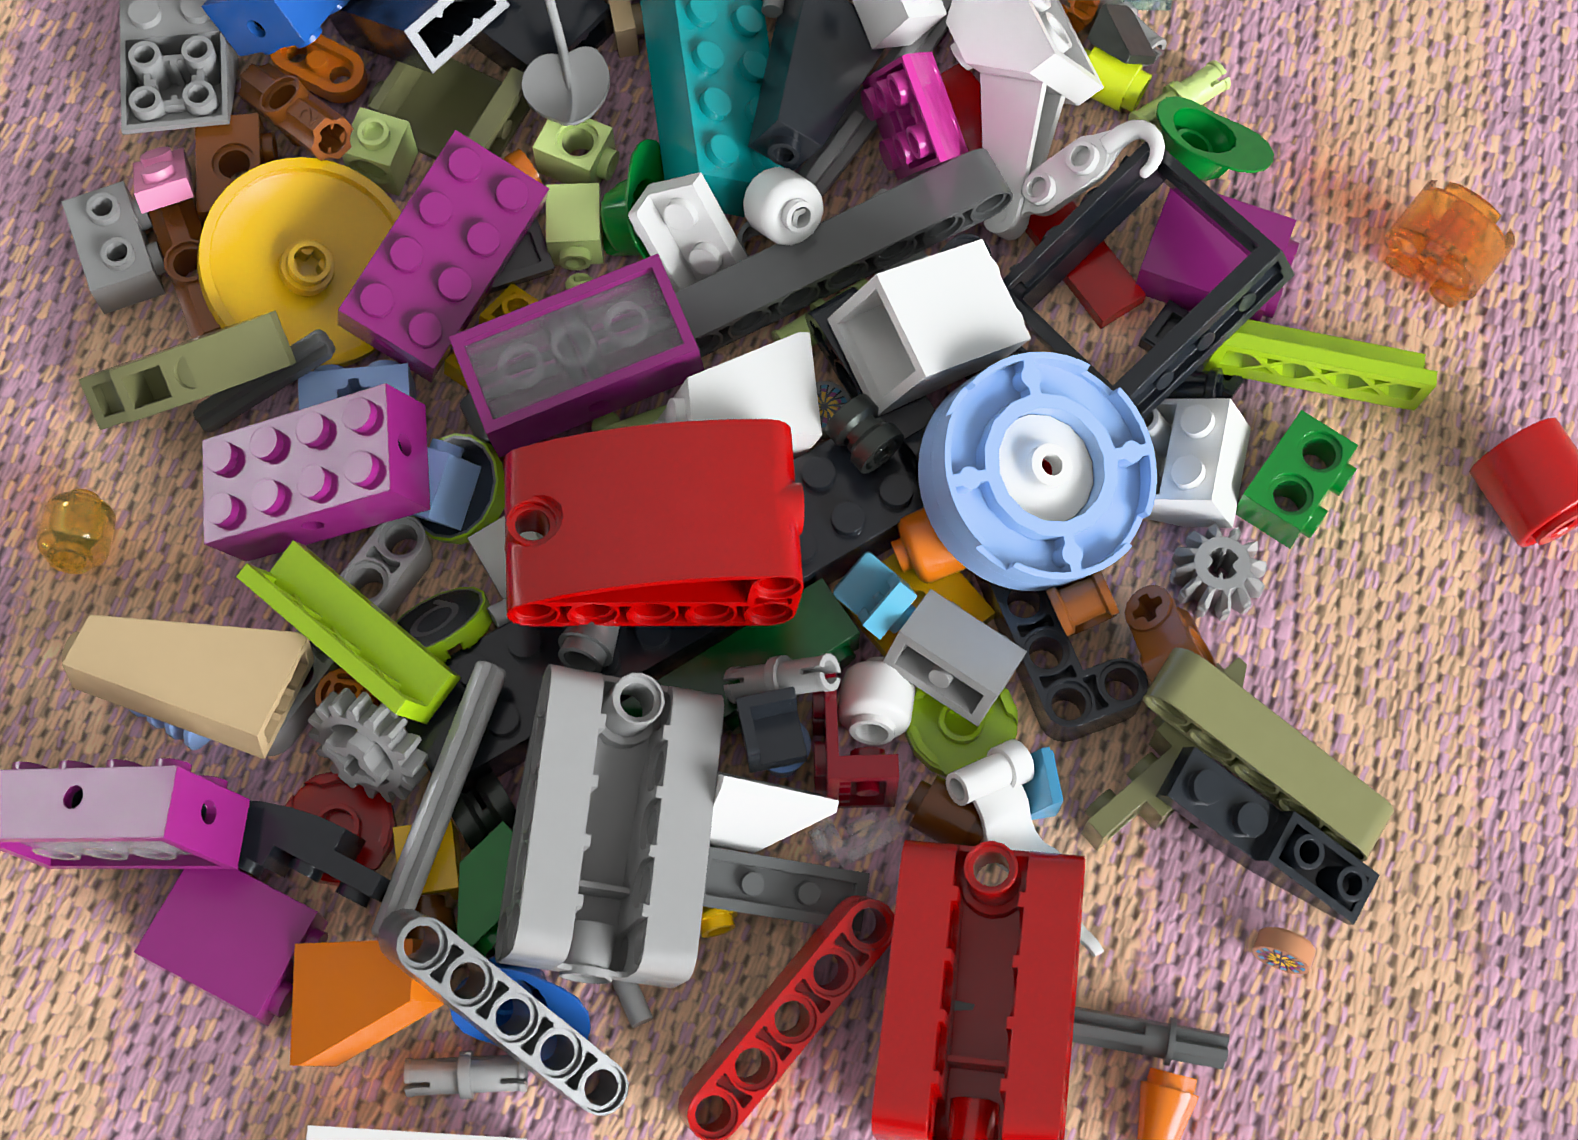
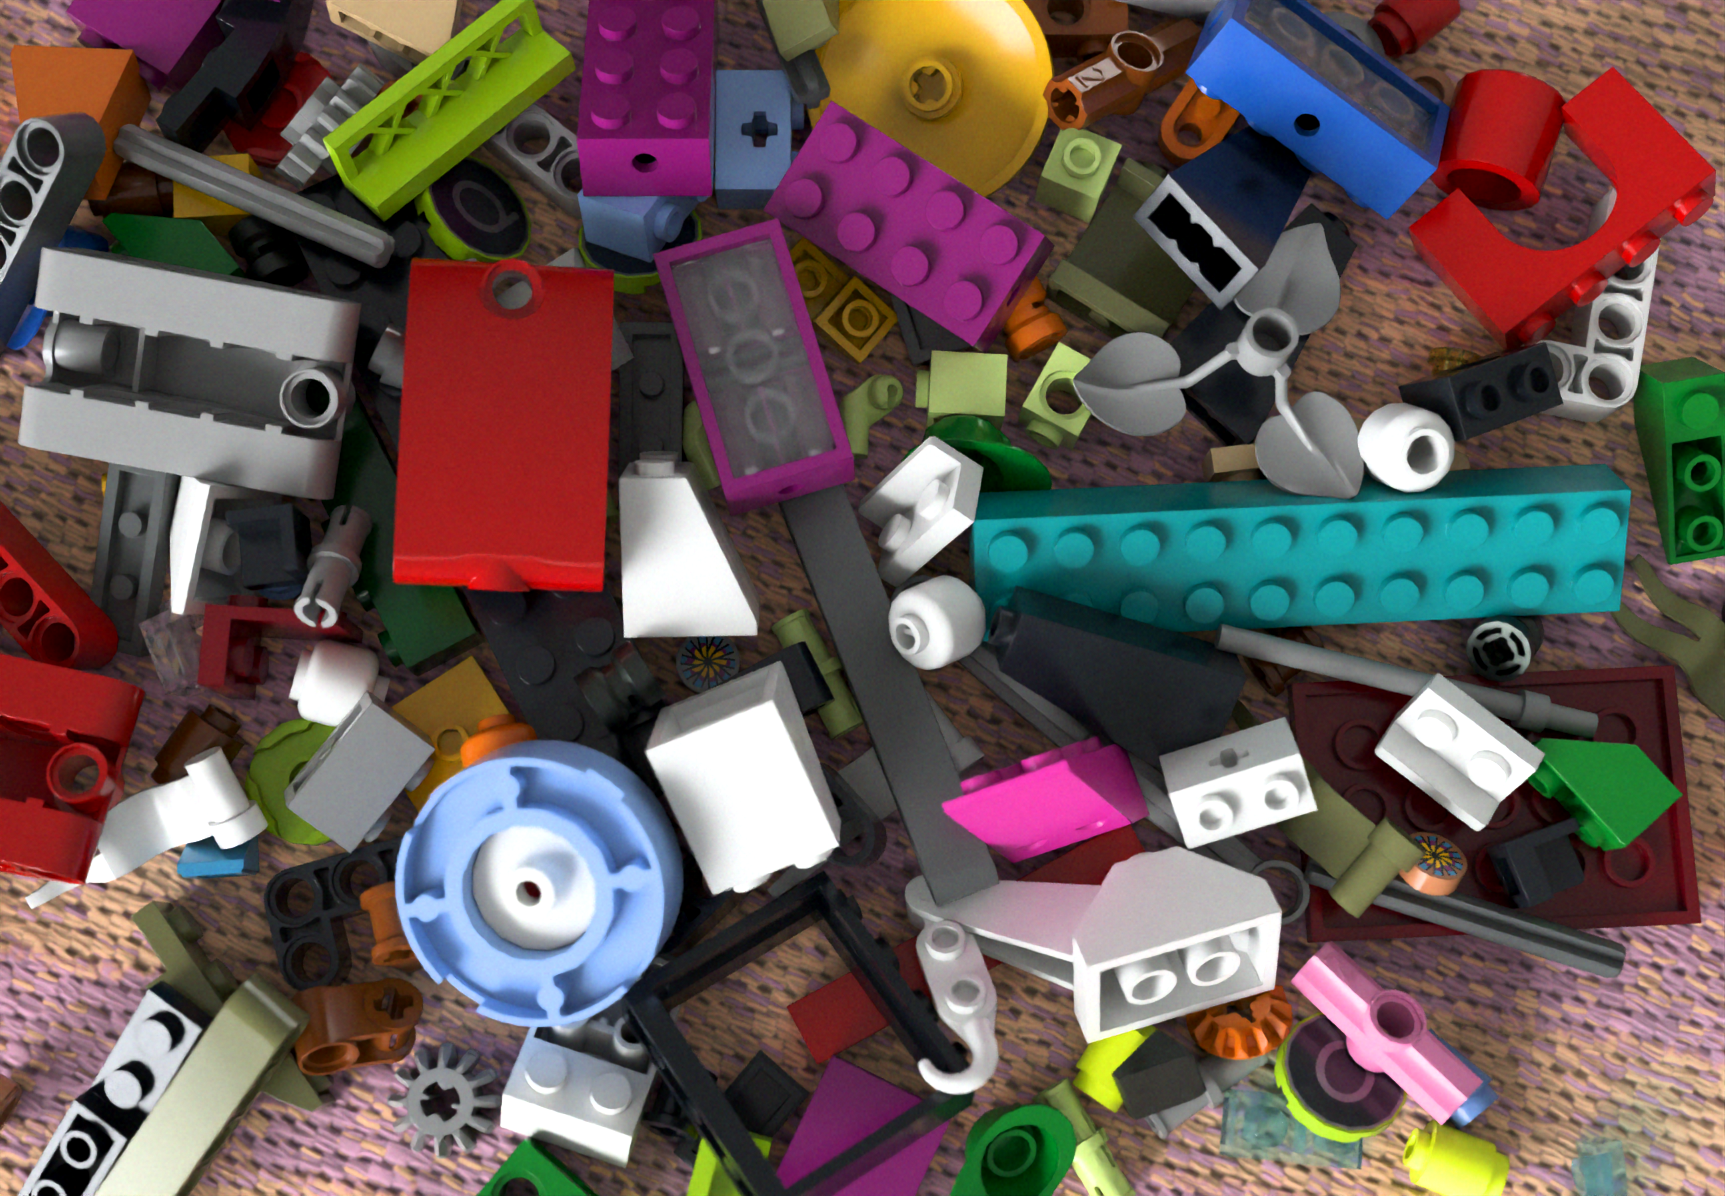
camera: 90 degrees right, 10 degrees up
(876, 595) = (443, 697): medium azure bracket -> none

